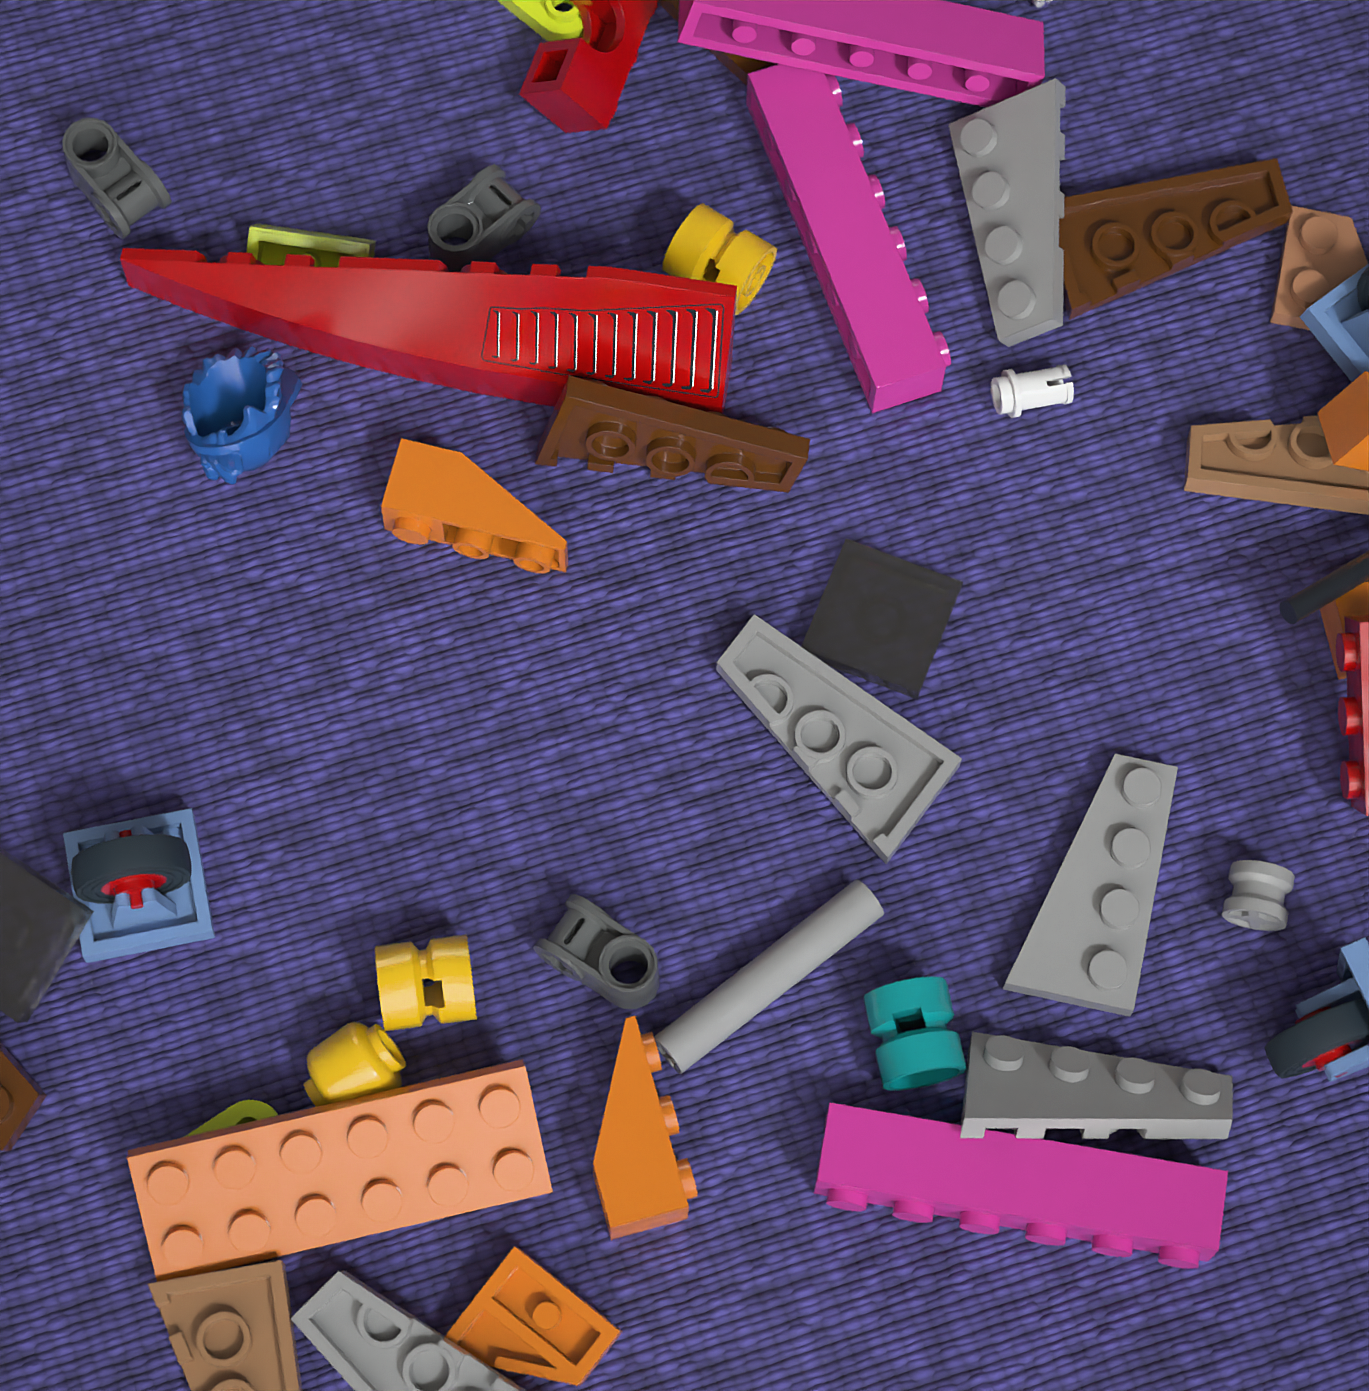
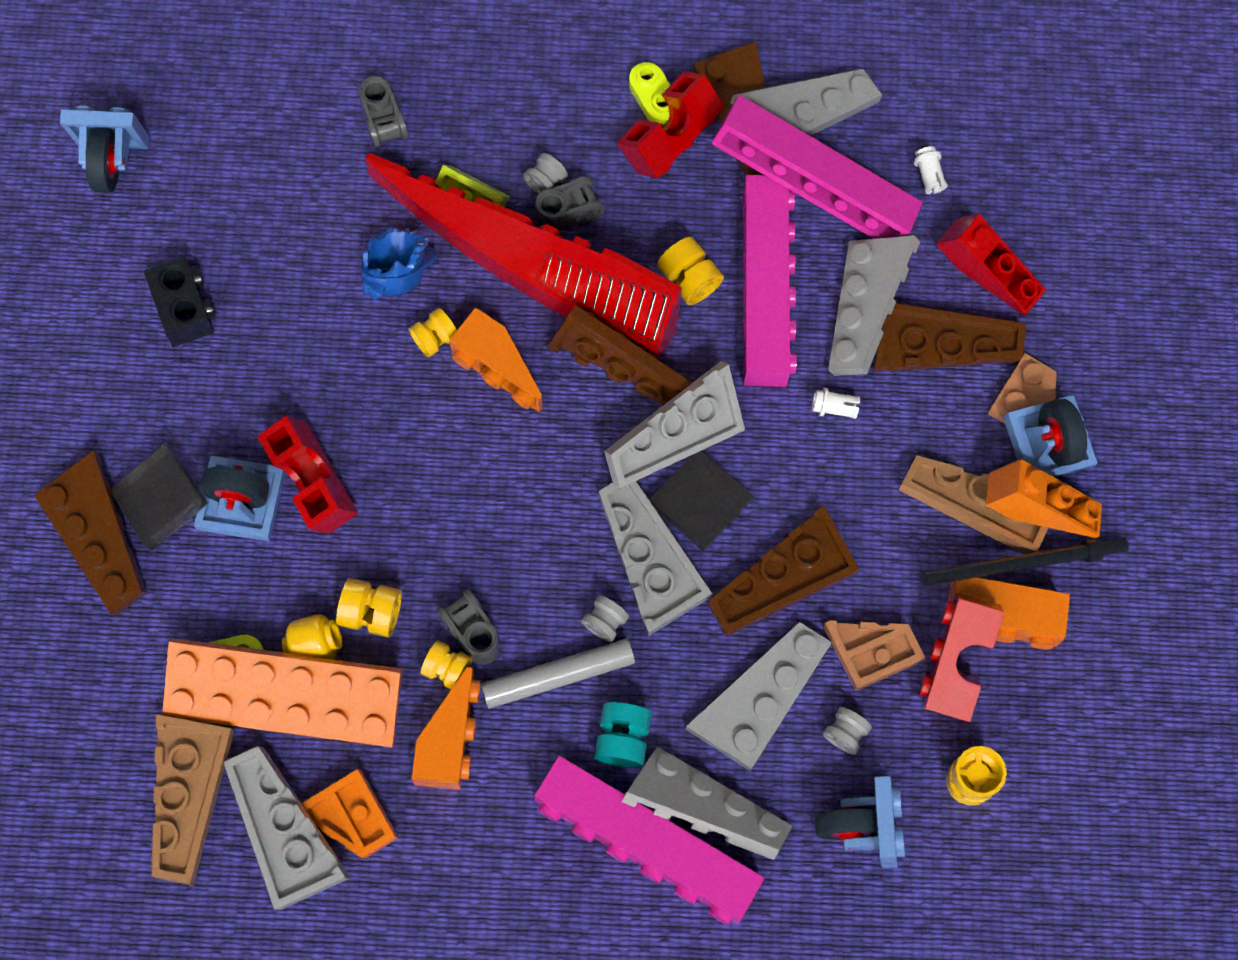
camera: 20 degrees right, 0 degrees up
(213, 781) = (297, 452): none -> red arch
(345, 503) = (432, 332): none -> yellow wheel
(421, 184) = (545, 174): none -> light grey wheel
(588, 1029) = (447, 665): none -> yellow wheel
(809, 515) = (683, 426): none -> light grey wing
(809, 861) = (605, 618): none -> light grey wheel
(1073, 675) = (795, 569): none -> reddish brown wing
(1181, 81) = (989, 261): none -> red slope
(1246, 756) = (873, 650): none -> nougat wing

